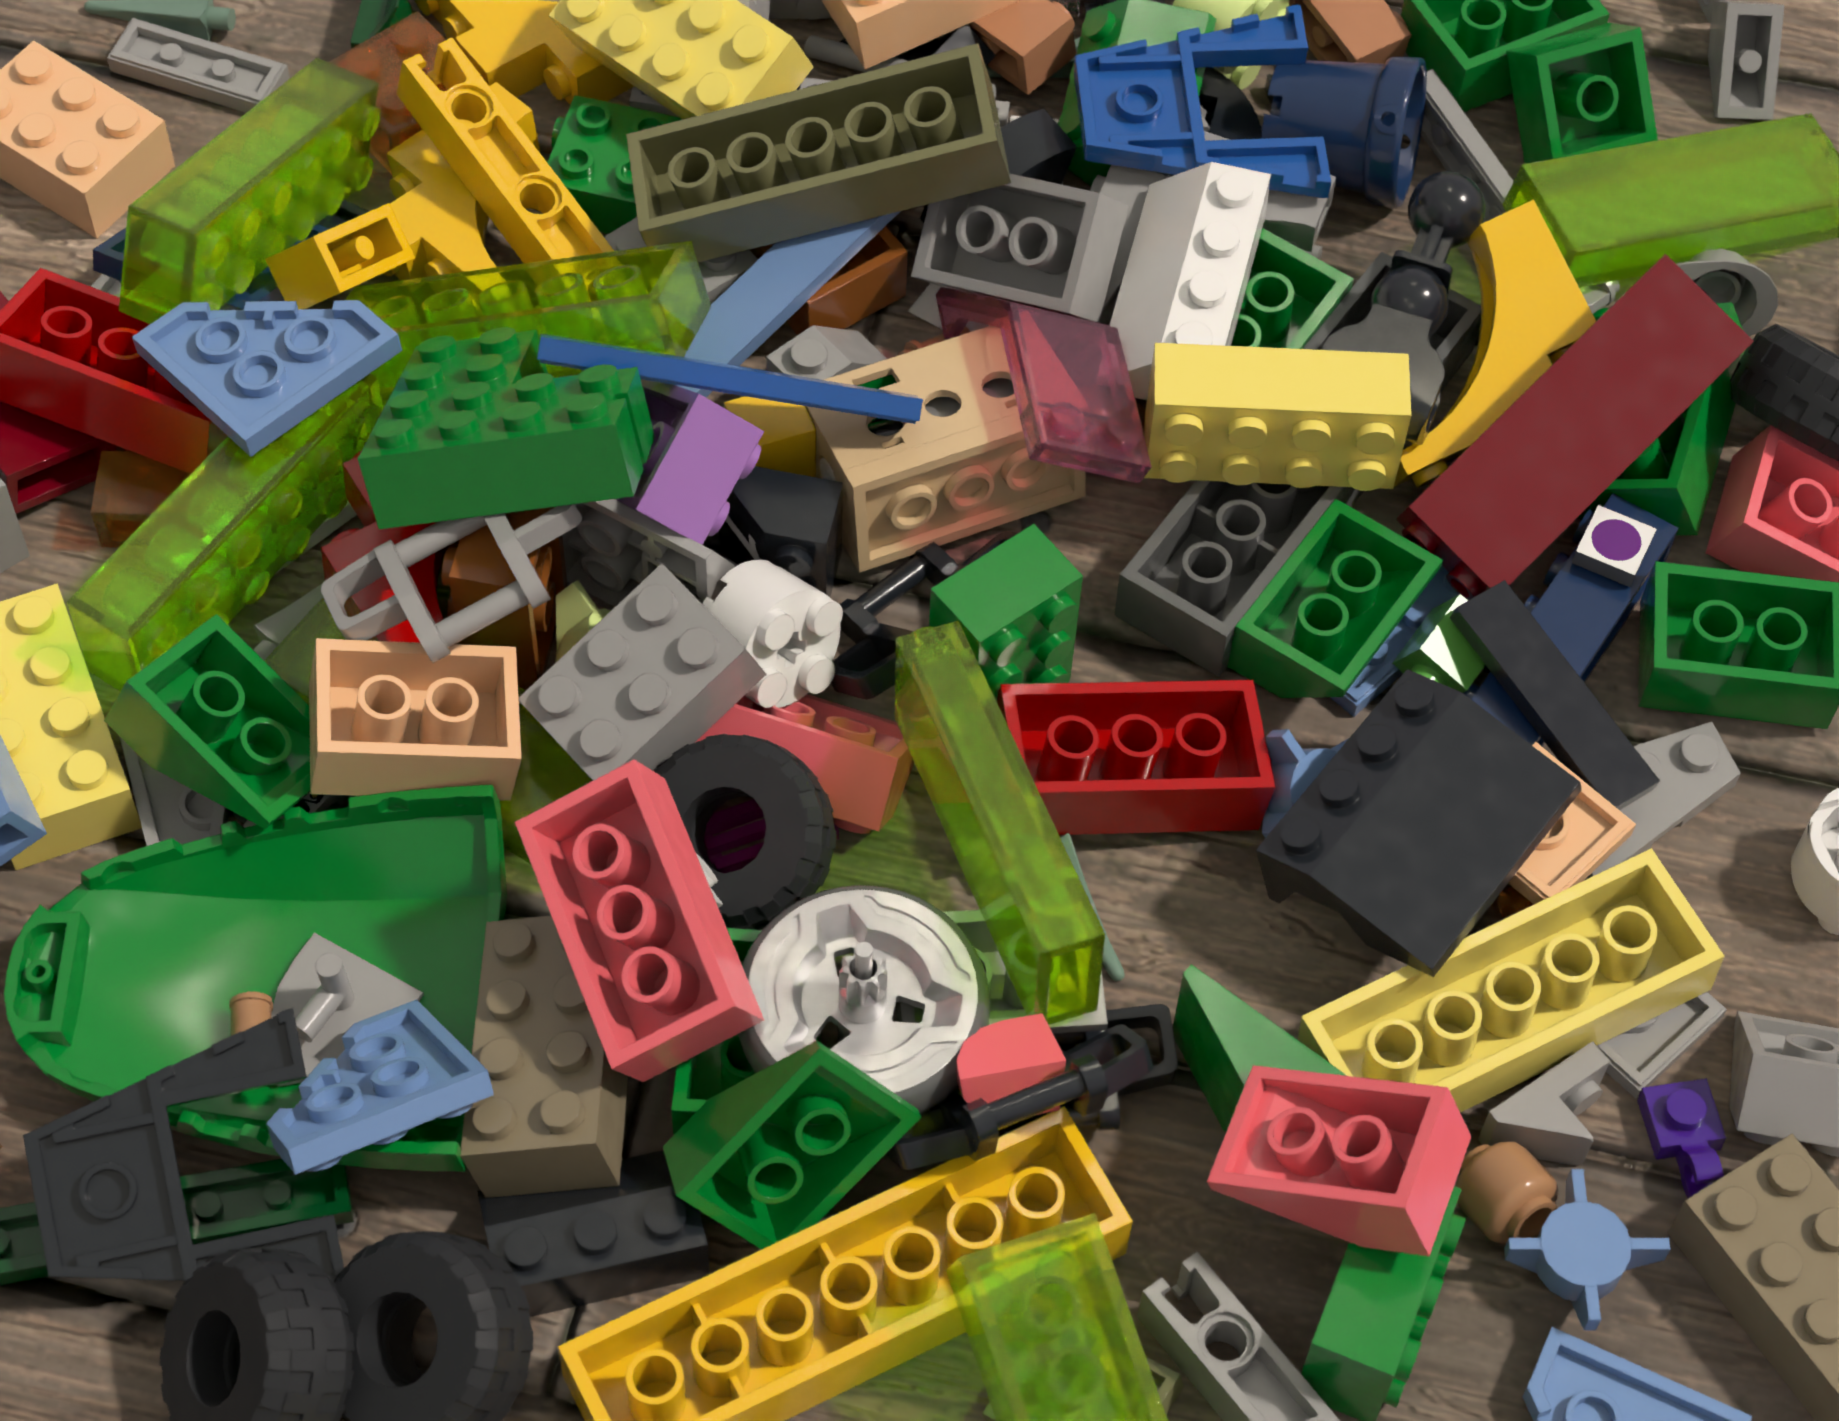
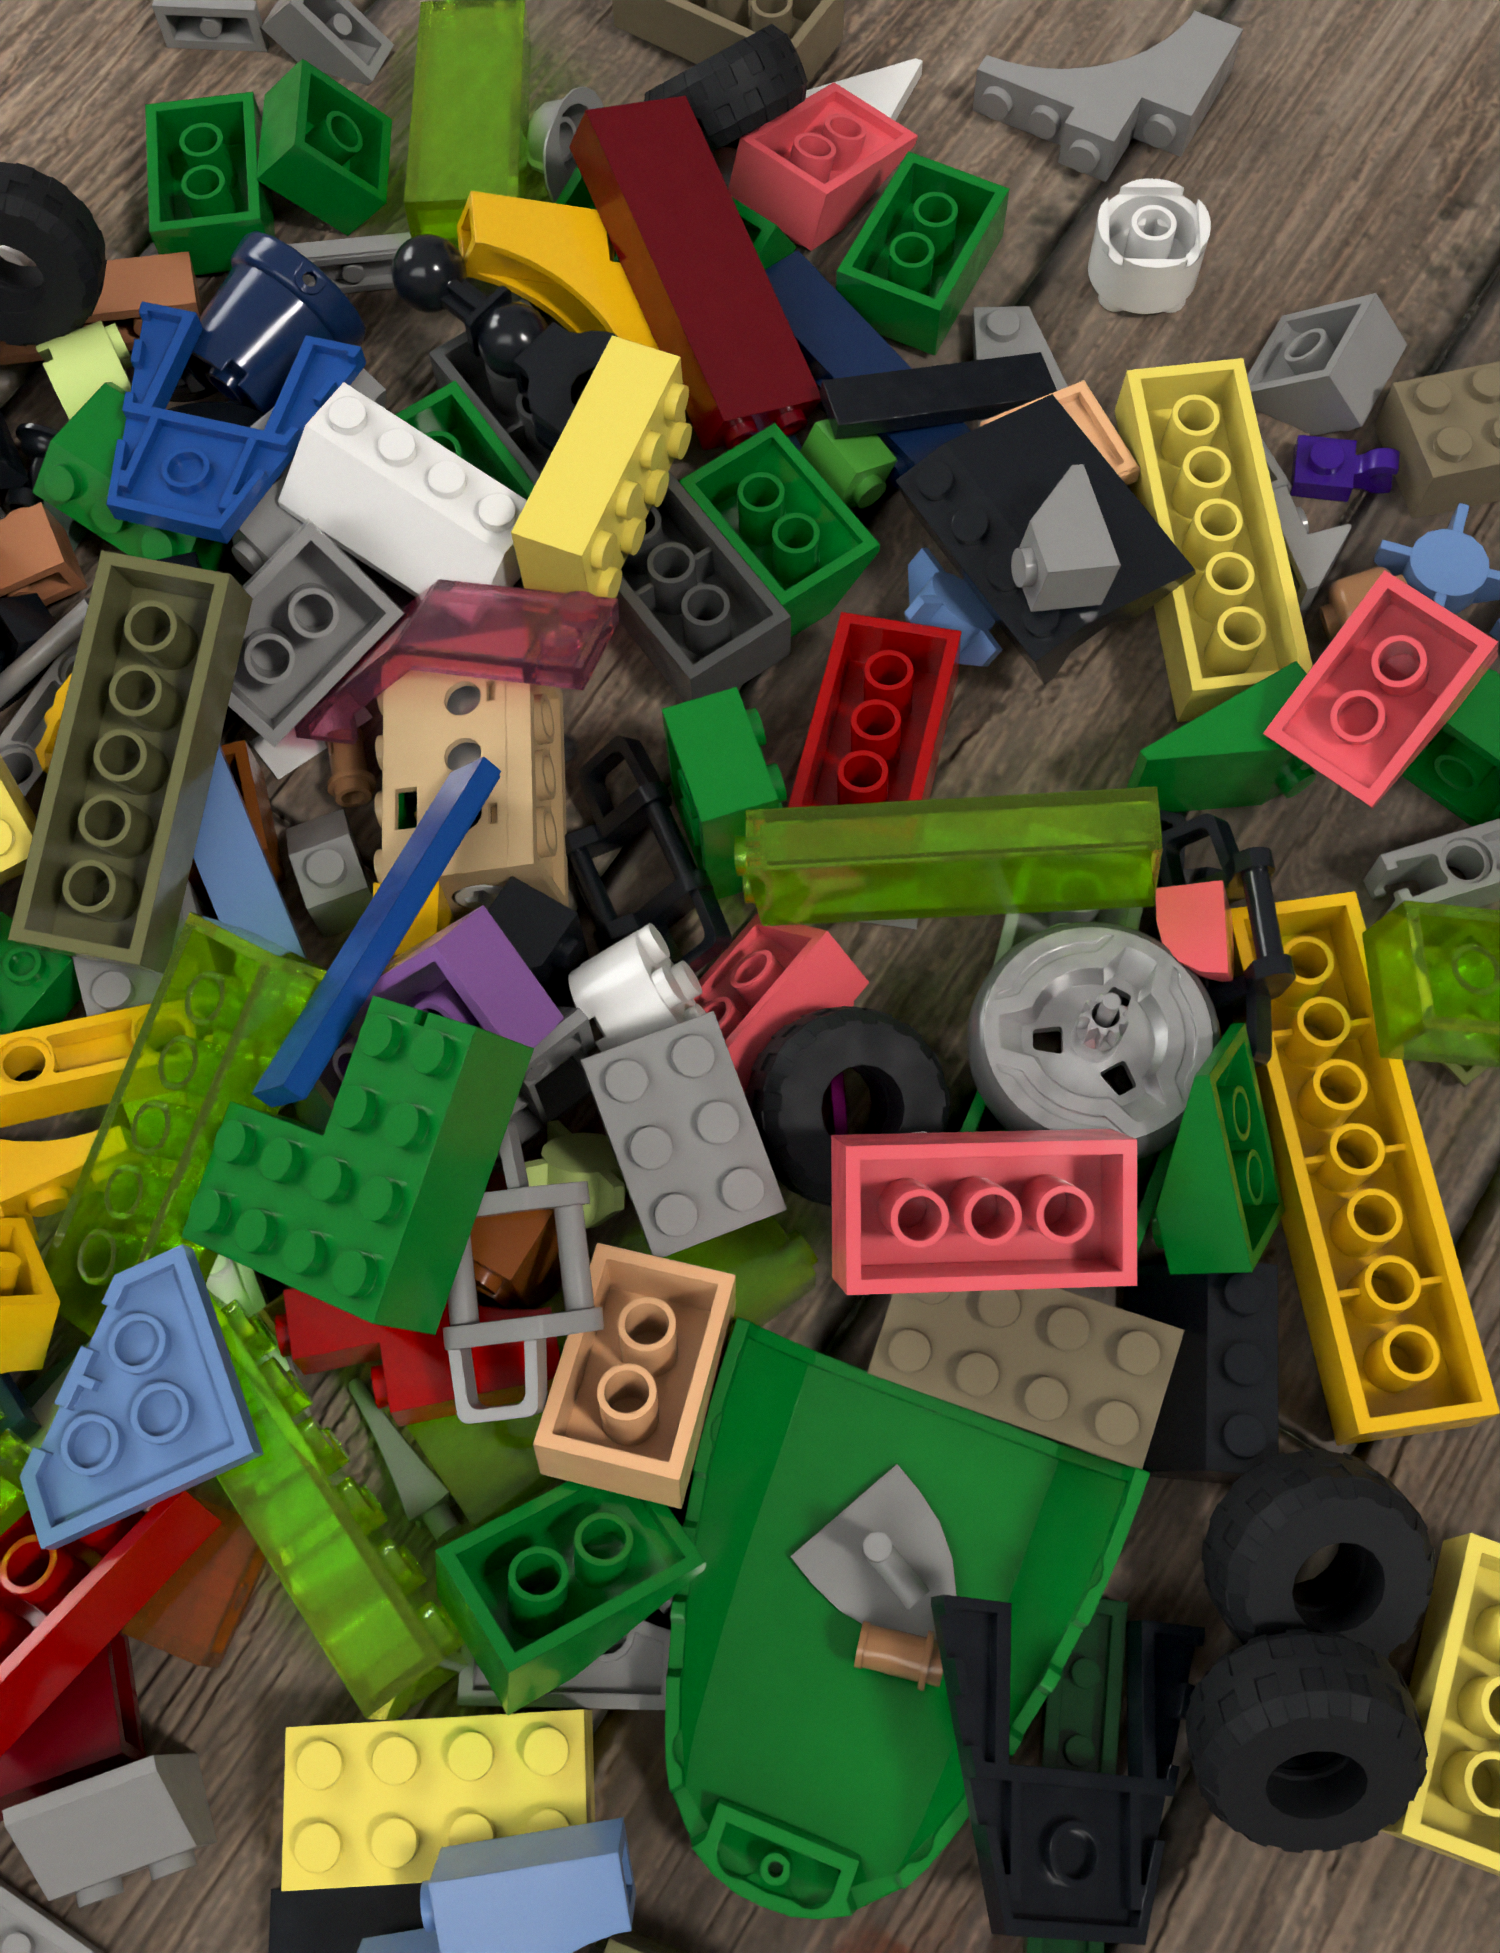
camera: 65 degrees left, 10 degrees up
(388, 1079) = (1046, 1531): medium blue plate -> none
(1371, 814) = (1066, 549): none -> light grey slope
(1614, 546) = (807, 296): tile -> none

